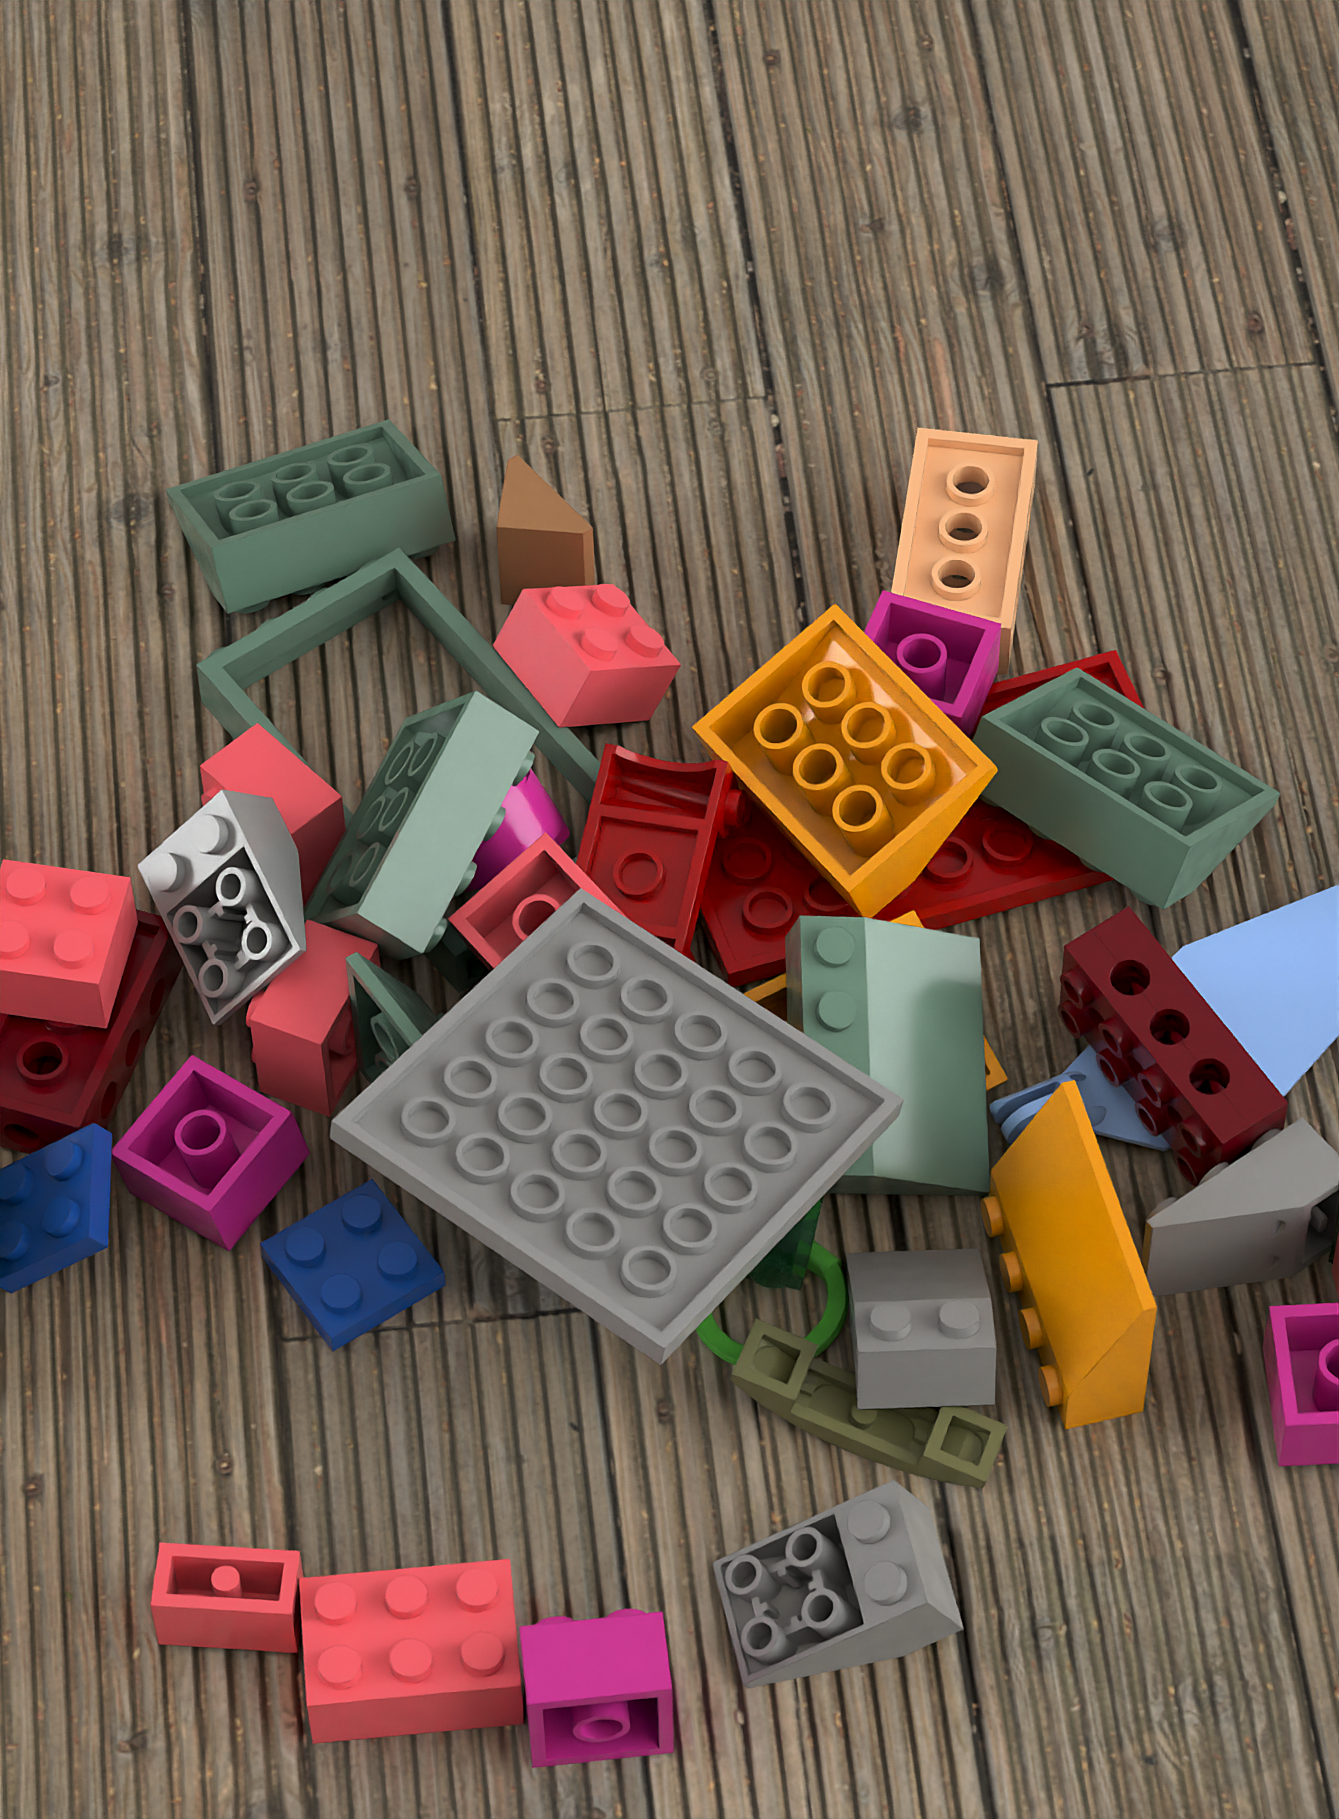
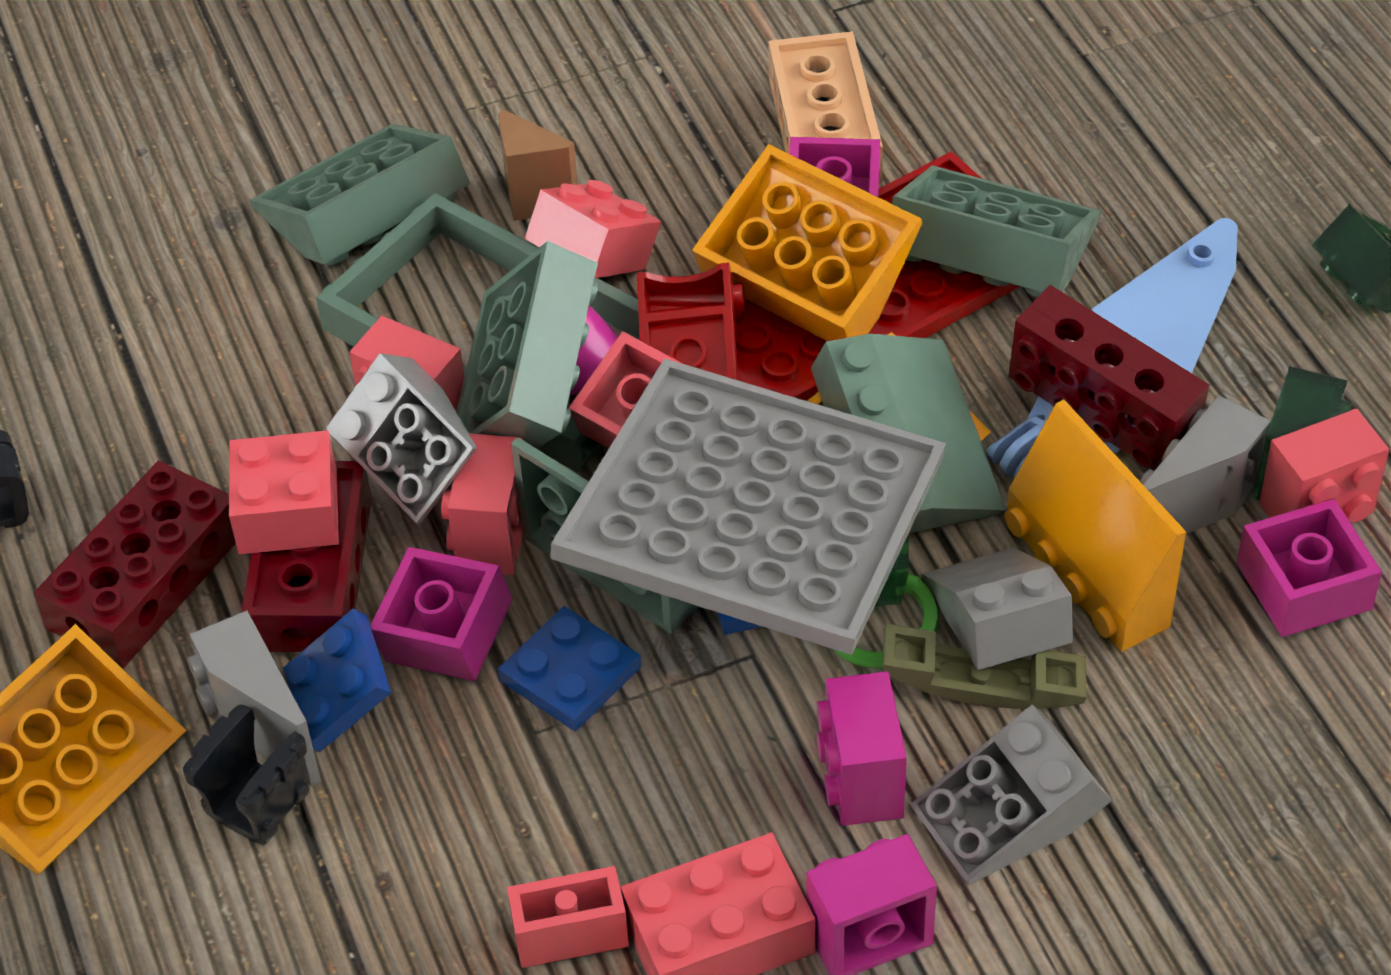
camera: 15 degrees left, 5 degrees down
(664, 1477) = (862, 748): none -> dark pink brick

